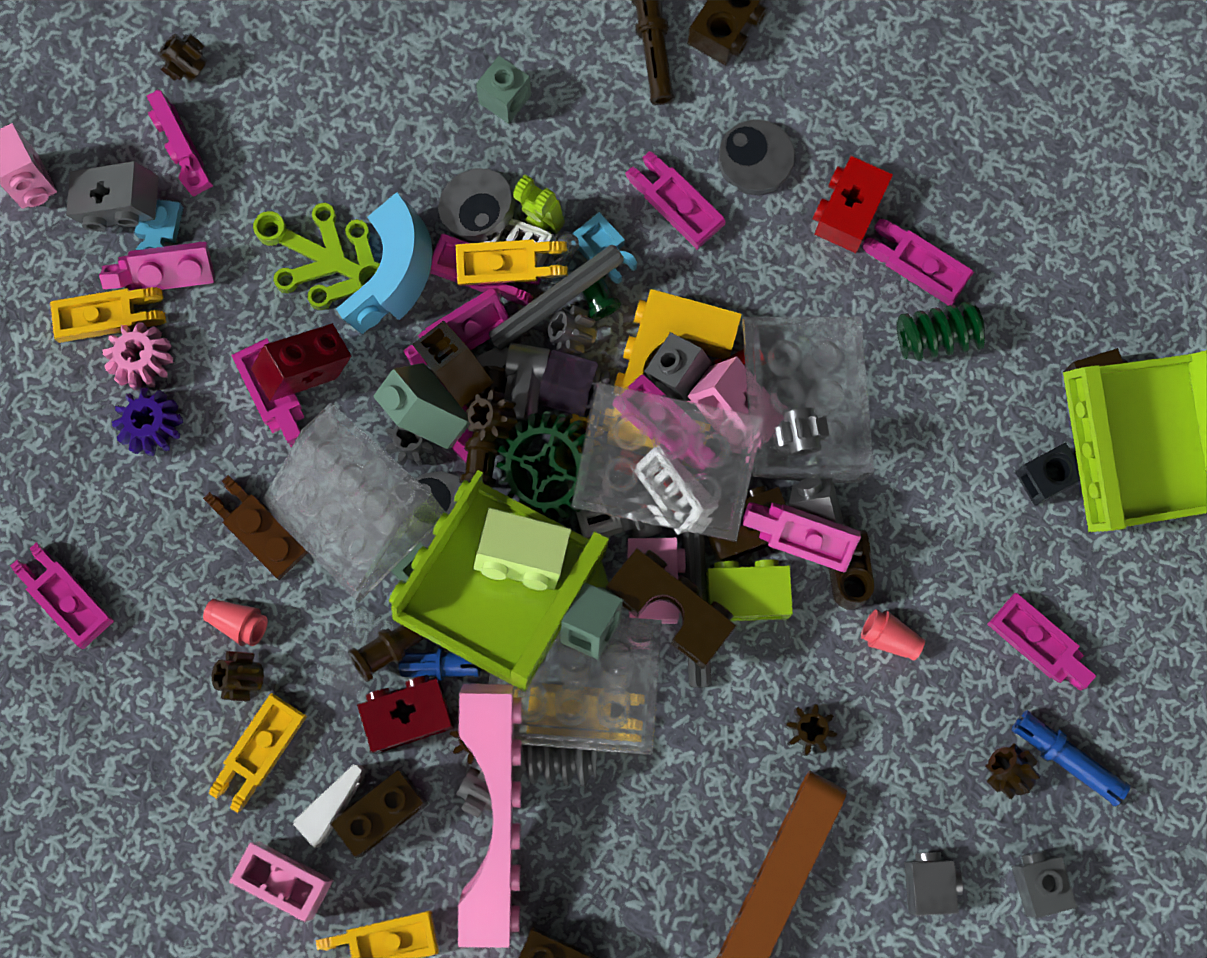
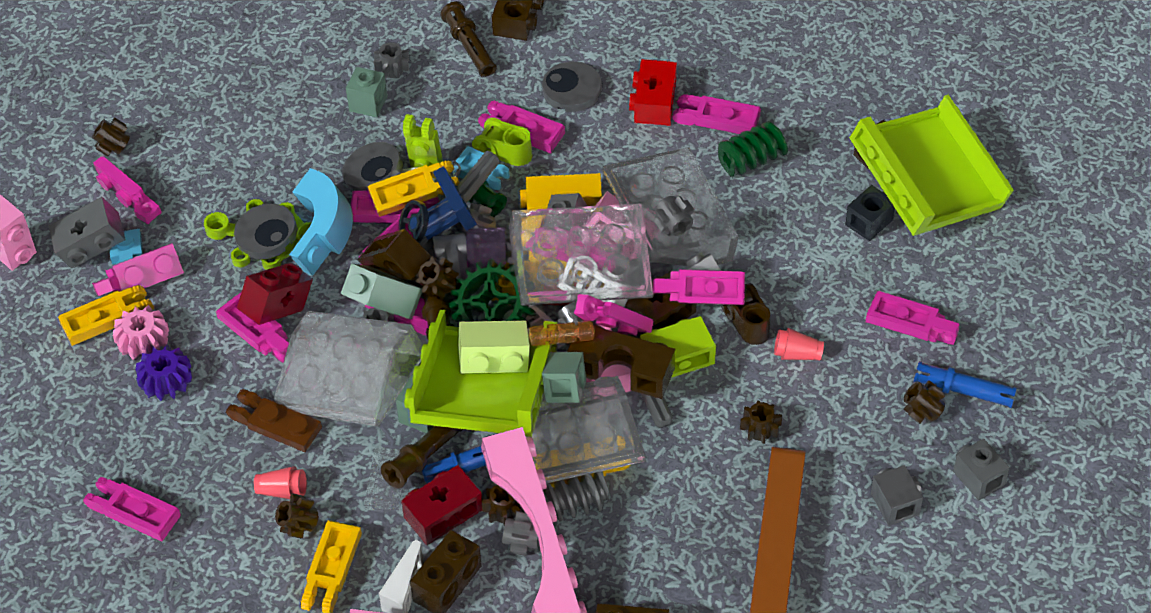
camera: 15 degrees left, 25 degrees down
(321, 260) = (265, 231): none -> flat silver tile
(525, 318) = (441, 215): none -> dark blue piece
(549, 59) = (391, 60): none -> flat silver gear
(605, 566) = (561, 333): none -> clear orange axle
(640, 213) = (506, 141): none -> lime piece
(678, 547) = (612, 315): none -> dark pink hinge

